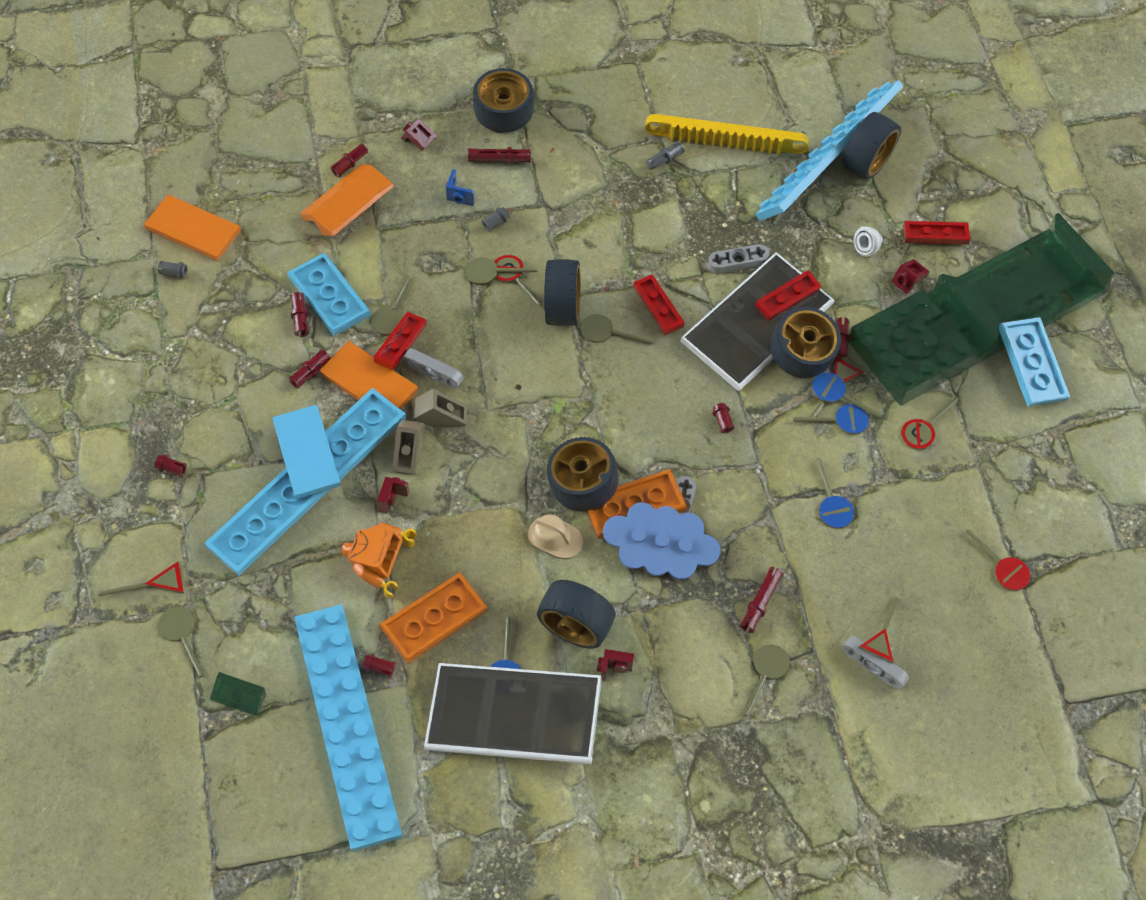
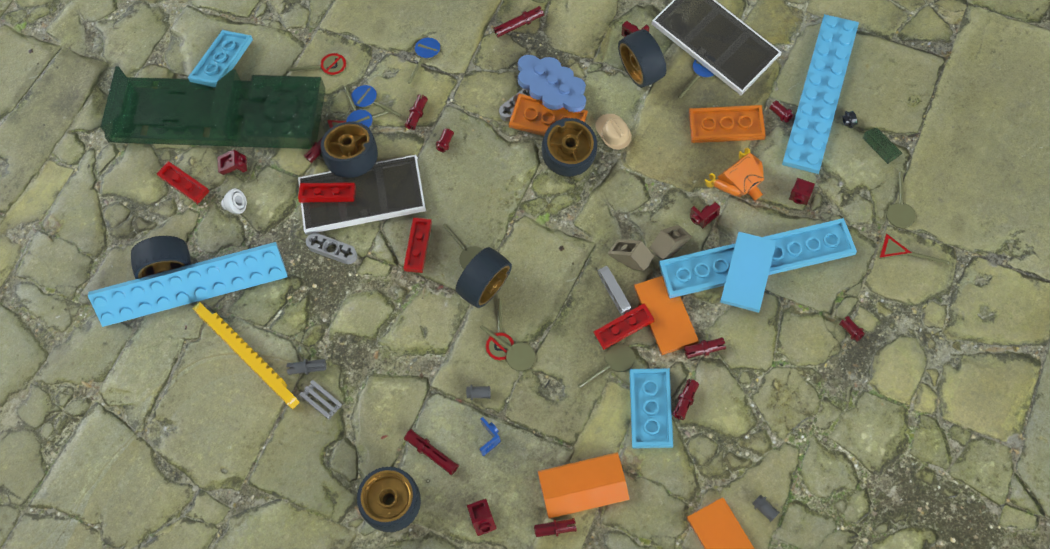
camera: 135 degrees left, 5 degrees up
(292, 702) = (849, 119): none -> black plate
(301, 581) = (801, 191): none -> dark red bracket
(630, 139) = (308, 389): none -> light grey tile
(780, 430) = (416, 112): none -> dark red pin

